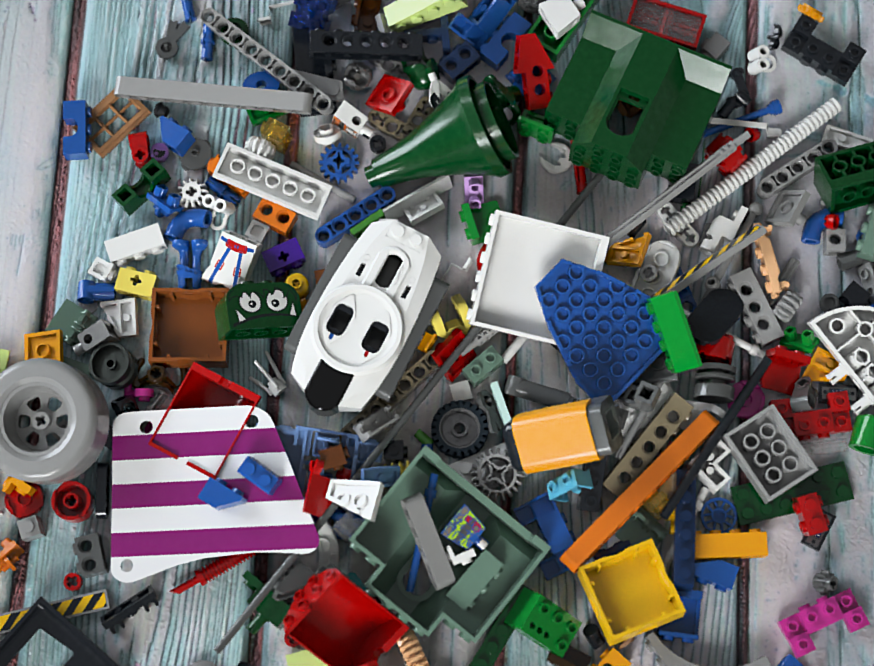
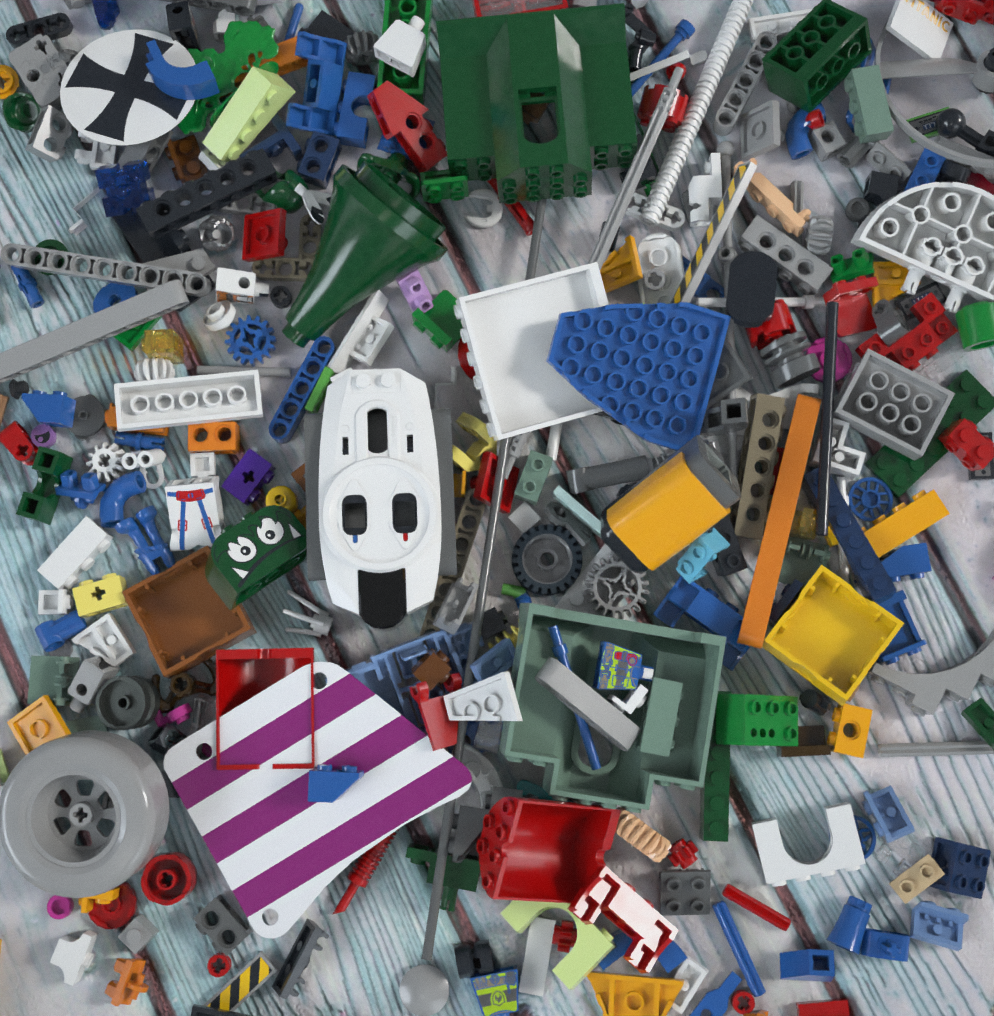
camera: 30 degrees left, 5 degrees up
(102, 490) = (194, 846): black beam -> none
(260, 475) = (363, 737): blue brick -> none
(673, 331) = (724, 327): green slope -> none

